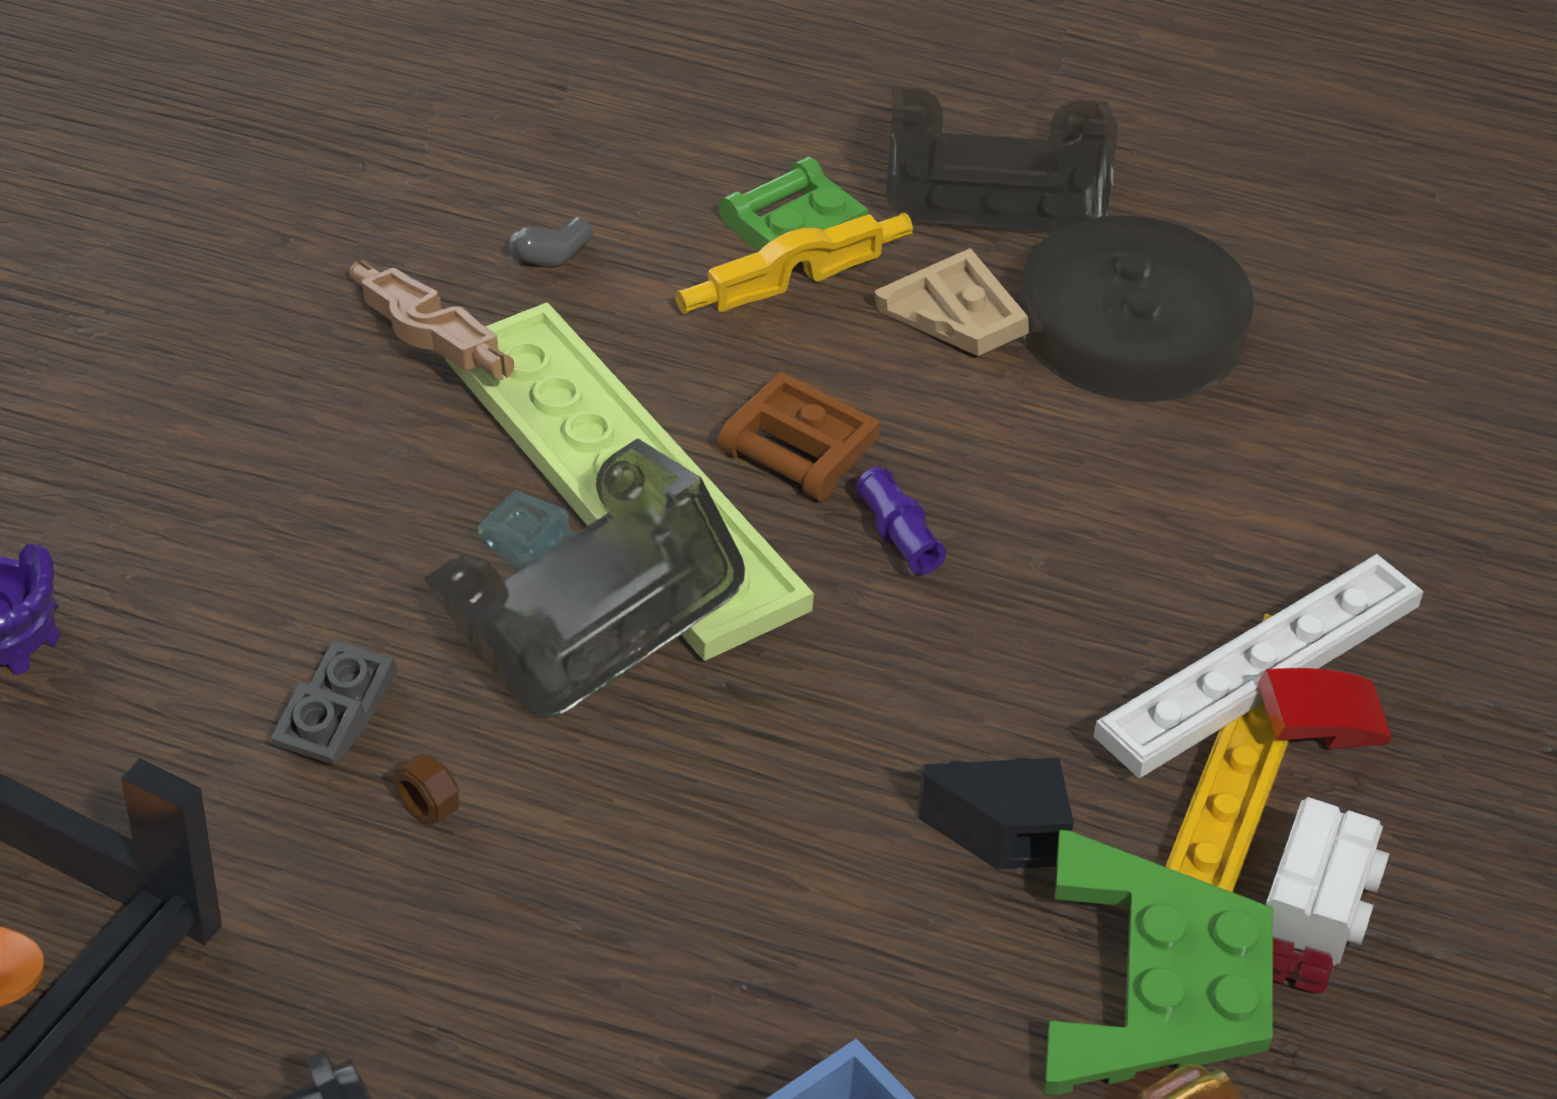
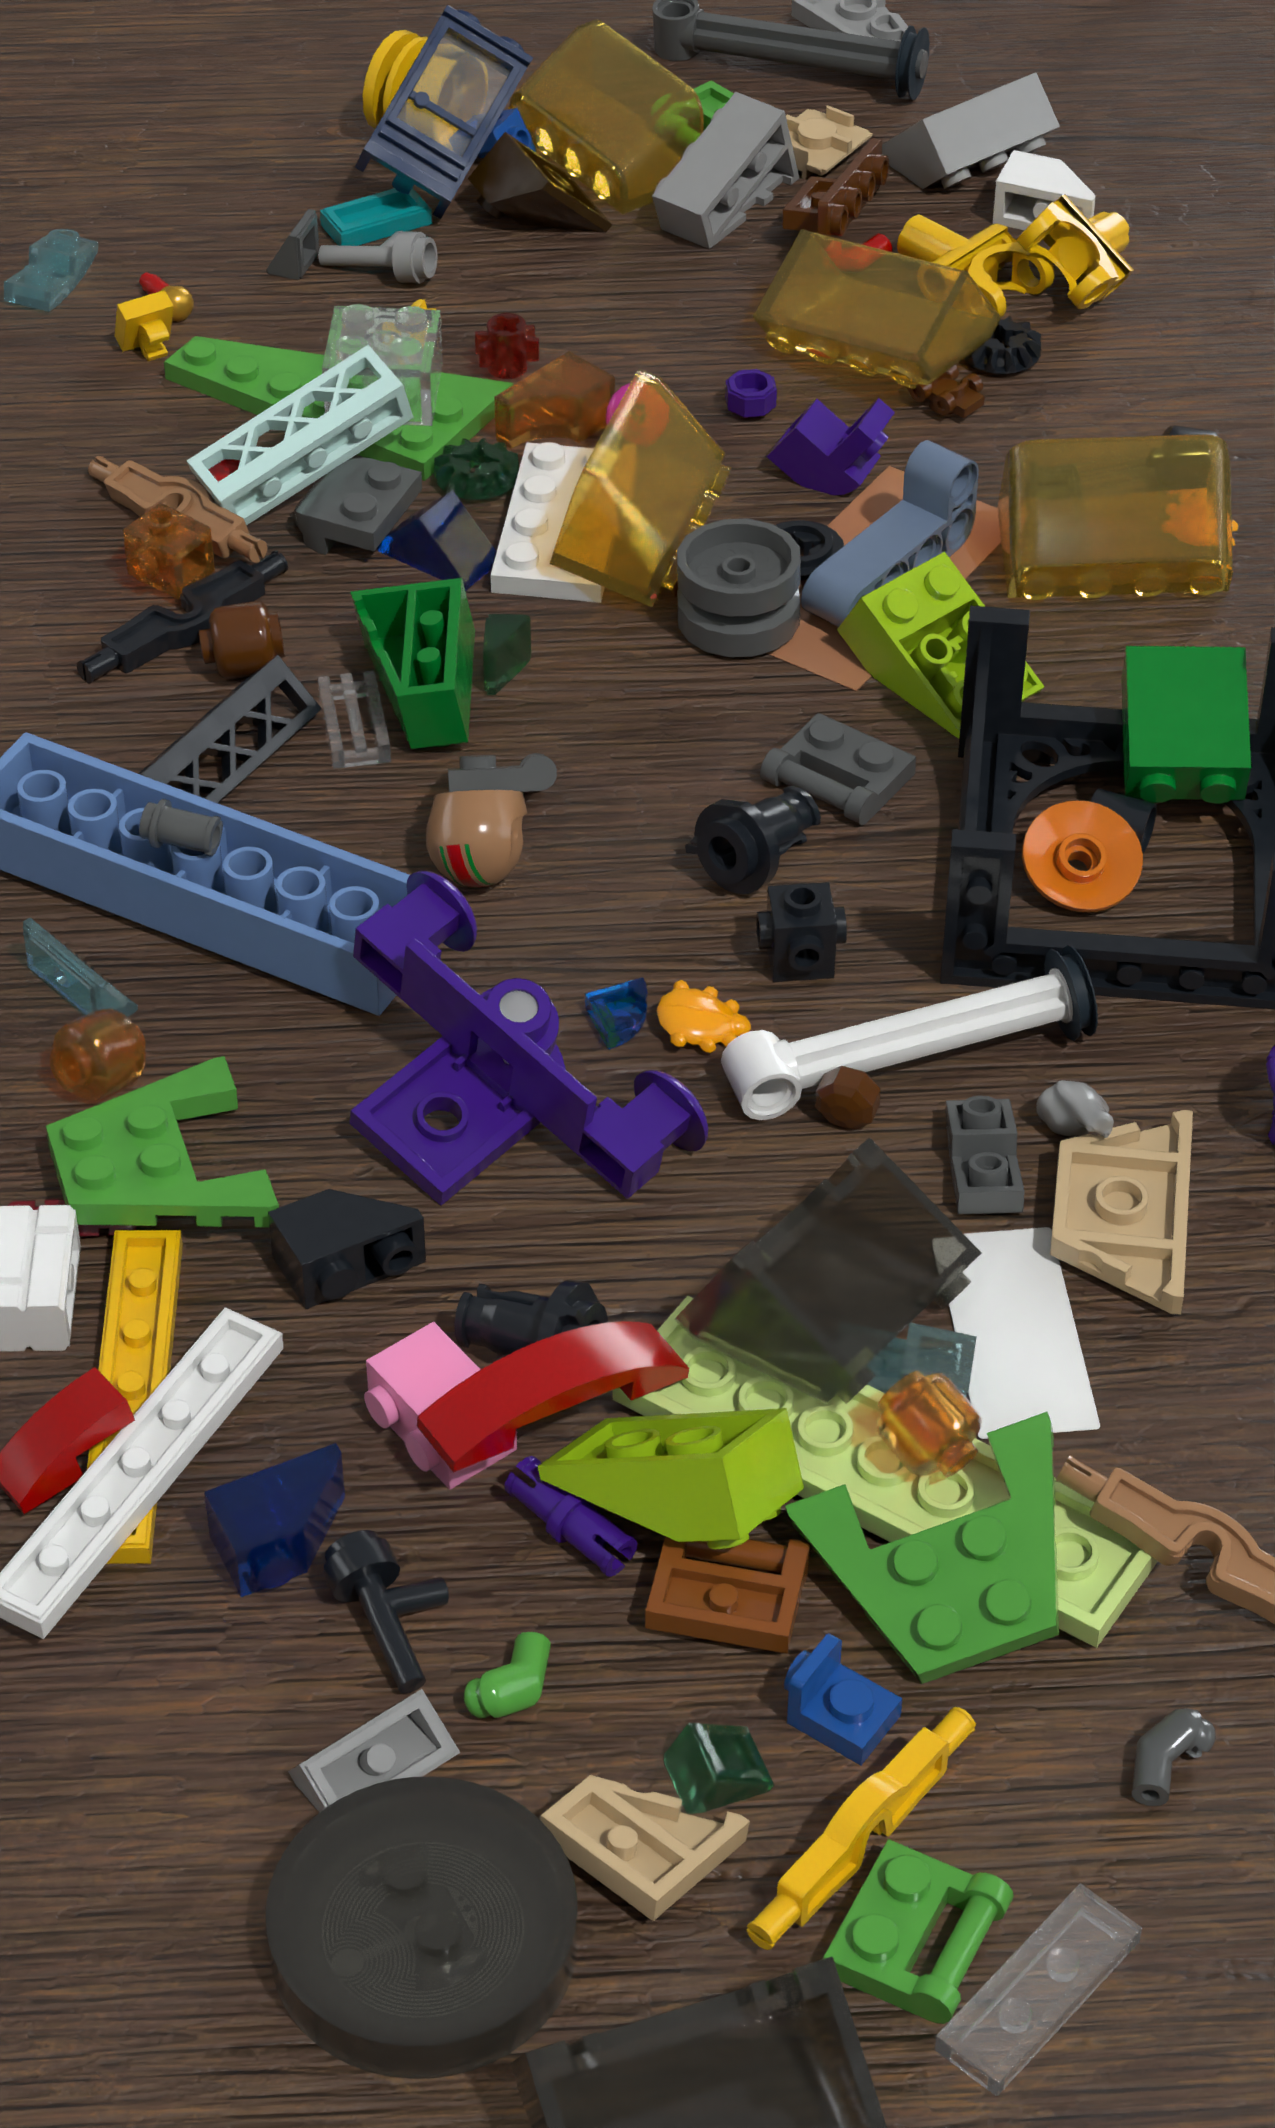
camera: 160 degrees right, 0 degrees up
(218, 698) = (1074, 1110): none -> light grey animal
(245, 607) = (1127, 1208): none -> tan wing
(342, 984) = (797, 920): none -> black brick
(389, 599) = (1025, 1335): none -> white sticker
(484, 840) = (771, 1072): none -> white piece
(505, 956) = (700, 1017): none -> light orange piece
(582, 431) = (929, 1424): none -> clear orange head
(584, 1002) = (618, 1011): none -> clear blue tile
(628, 355) = (962, 1585): none -> bright green wing
(730, 164) = (1037, 1989): none -> clear tile
(763, 341) = (838, 1703): none -> blue bracket
(768, 909) = (495, 1065): none -> dark purple piece
(808, 489) = (685, 1472): none -> lime slope
(840, 634) = (517, 1318): none -> black piece
(873, 340) = (716, 1766): none -> clear green slope
(876, 548) = (543, 1378): none -> red slope
(973, 632) = (410, 1379): none -> bright pink brick
(995, 428) = (512, 1685): none -> bright green arm
(1089, 521) = (361, 1570): none -> black piece
(1130, 428) = (392, 1746): none -> light grey slope
(1150, 589) = (276, 1518): none -> clear blue slope

